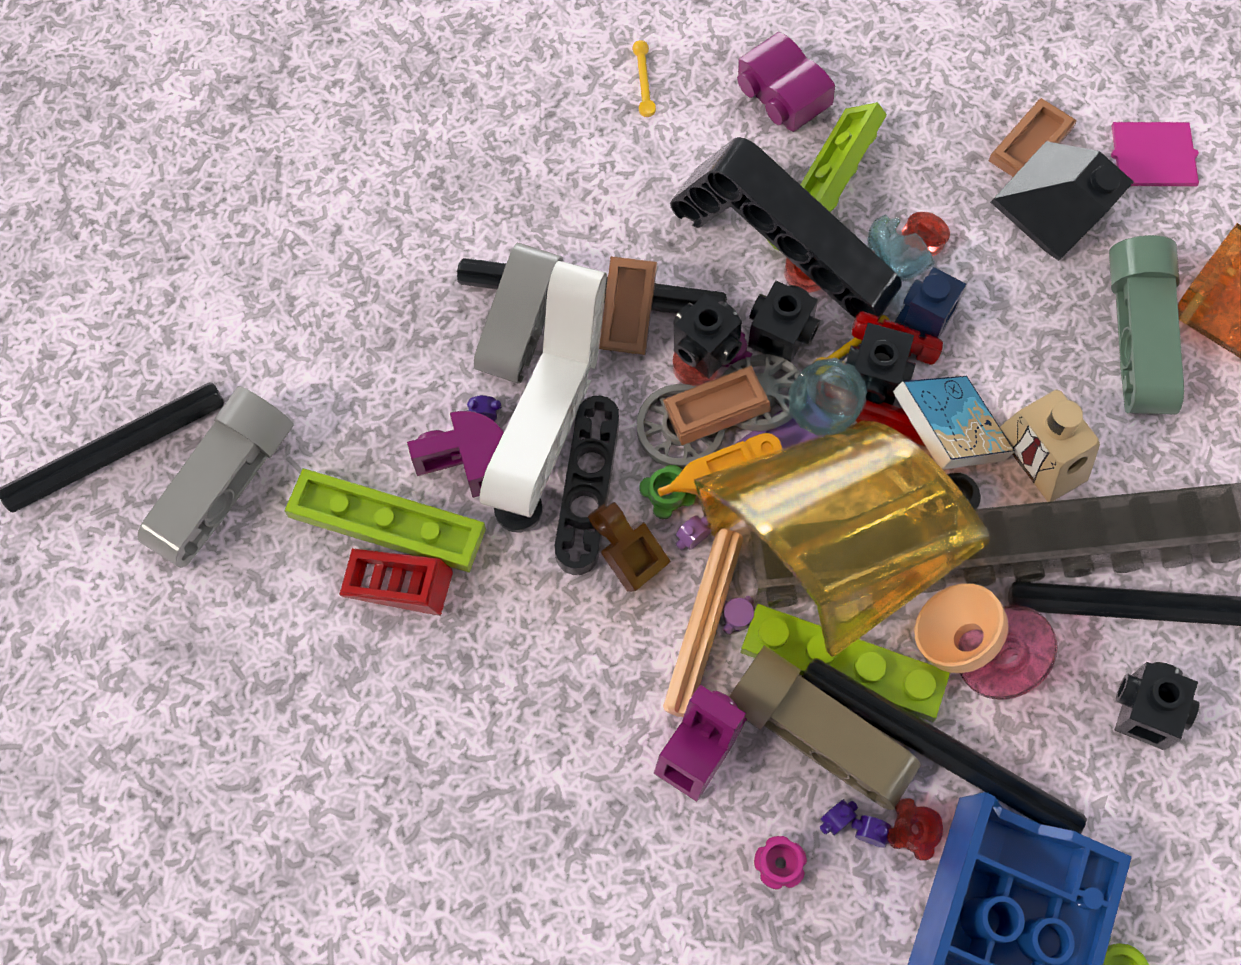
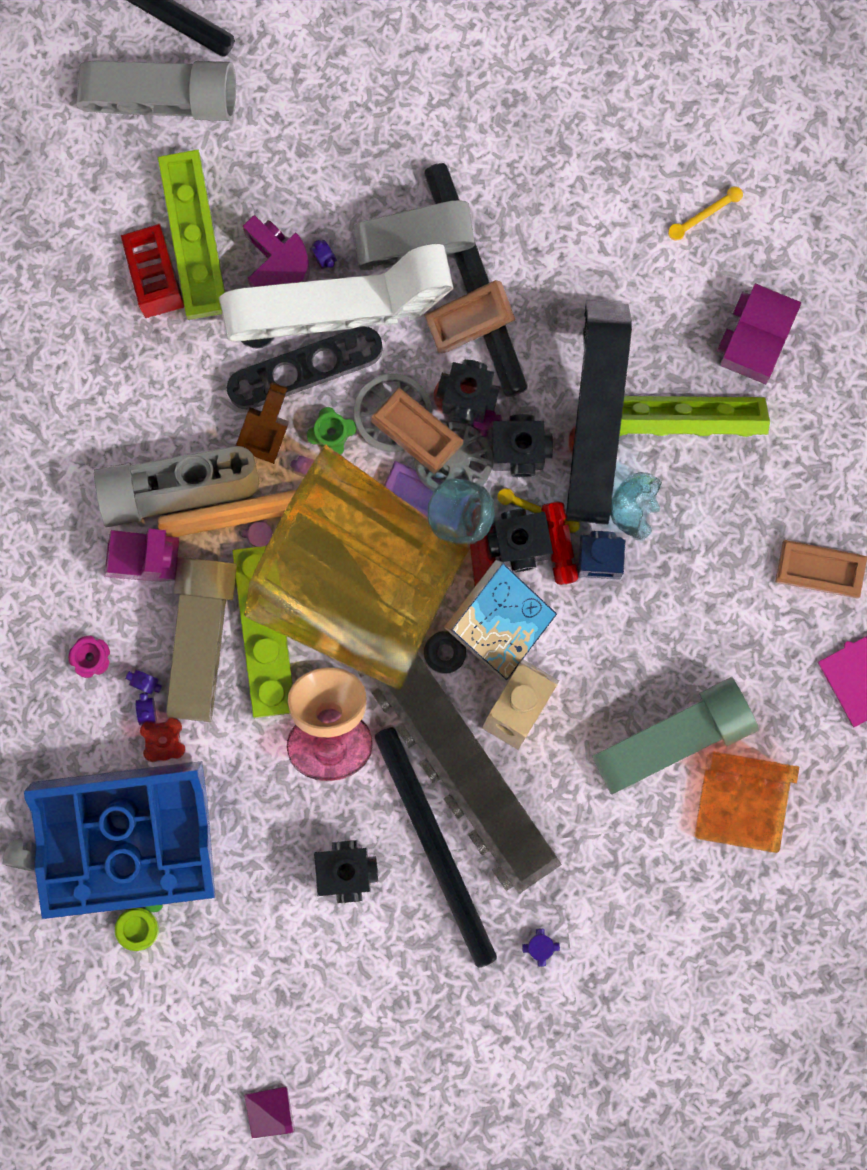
camera: 60 degrees right, 15 degrees up
(624, 721) = (127, 494): none -> light grey beam
(721, 459) = (368, 461): light orange piece -> none
(930, 228) = (674, 521): clear red tile -> none
(944, 749) = (230, 732): black axle -> none
(1061, 195) = (766, 613): black slope -> none

